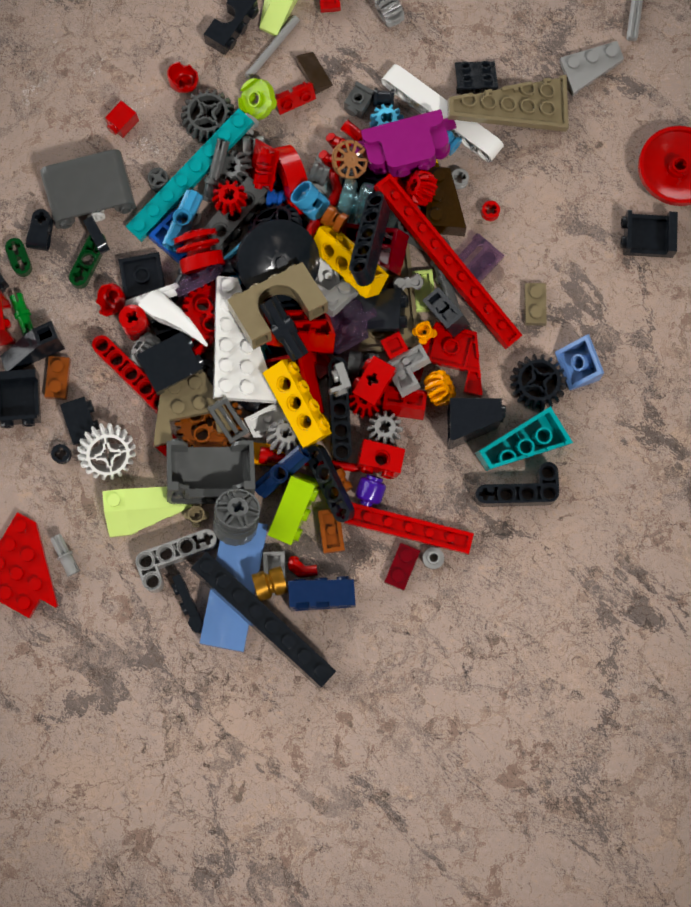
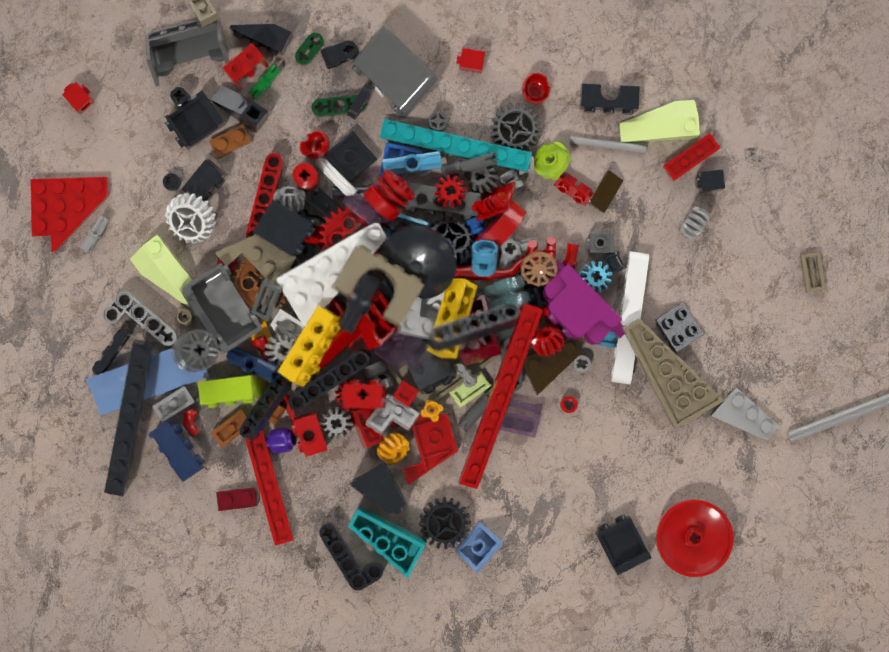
camera: 55 degrees right, 10 degrees up
(168, 313) = (326, 194): white piece -> none
(270, 583) = (160, 407): pearl gold wheel -> none
(319, 174) = (512, 251): dark grey wheel -> none
(334, 219) = (478, 283): dark orange wheel -> none
(340, 376) = (351, 366): light grey bracket -> none
(428, 563) = (261, 515): light grey plate -> none
(446, 312) = (455, 419): black brick -> none
(535, 304) = (510, 484): dark tan plate -> none

